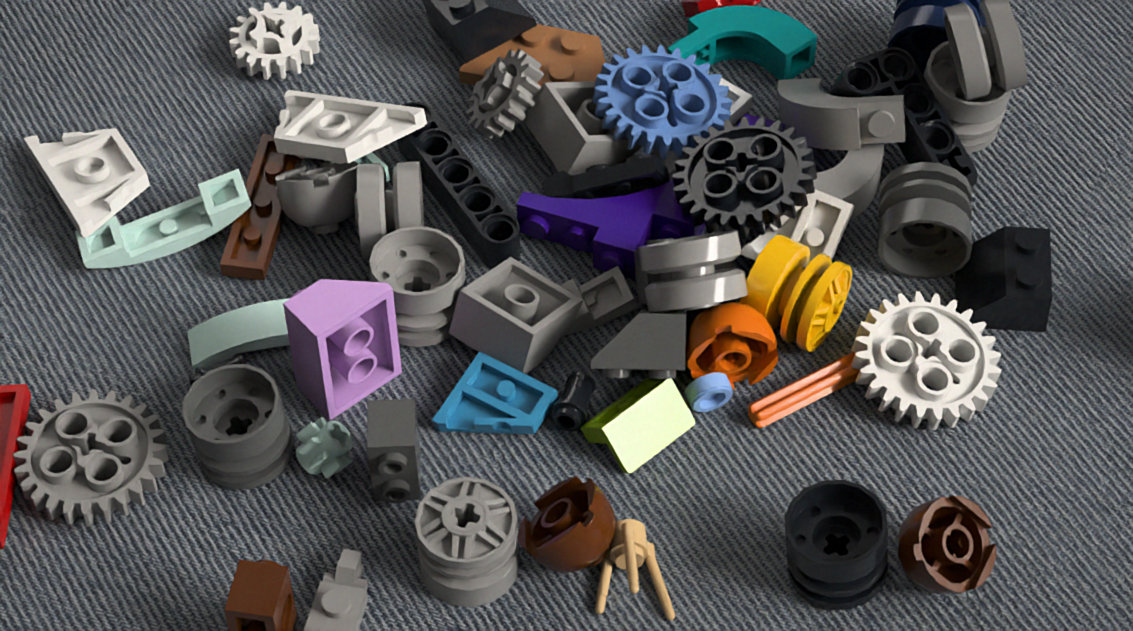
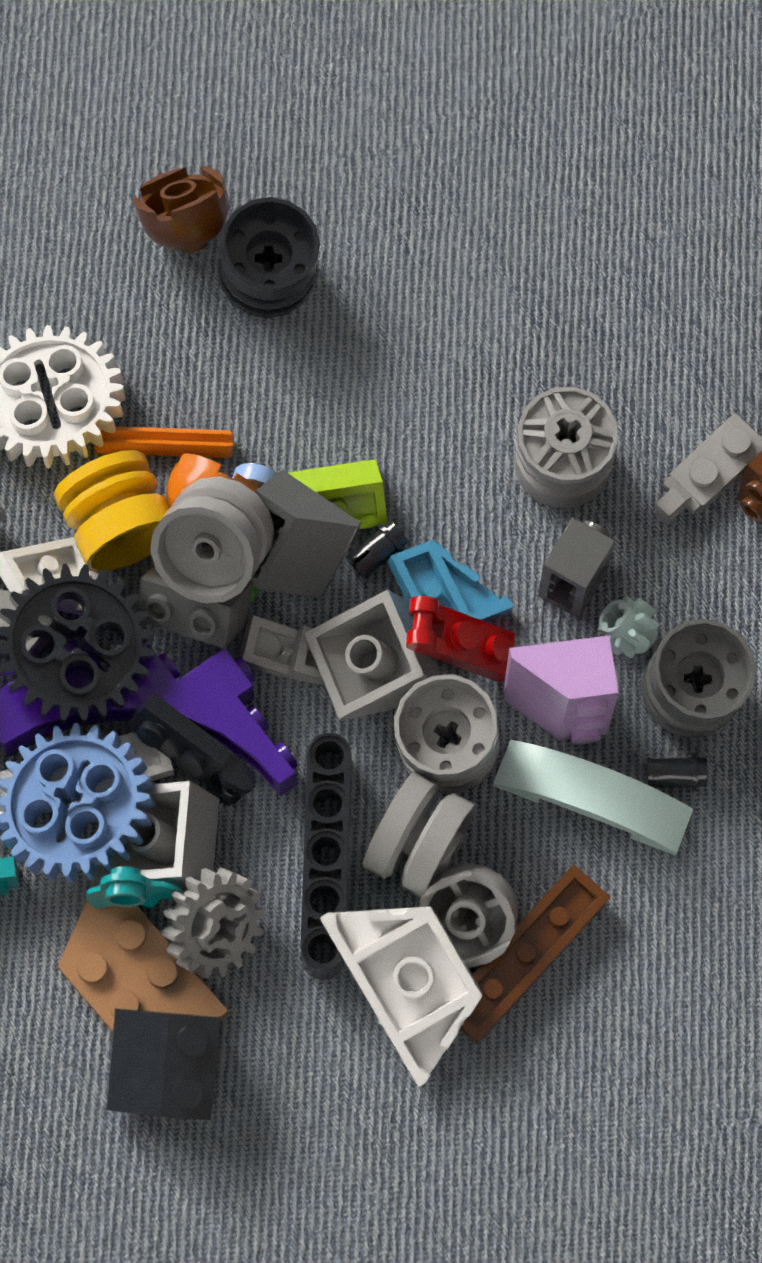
camera: 150 degrees left, 20 degrees up
(90, 175) = (679, 1101): white wing -> none
(170, 229) = (637, 987): light aqua slope -> none
(274, 40) = (415, 1169): white gear -> none
(453, 348) = (458, 638): none -> red plate
(570, 527) = (474, 409): reddish brown cylinder -> none
(579, 62) = (129, 888): none -> teal plate
(629, 551) = (427, 381): tan plant -> none

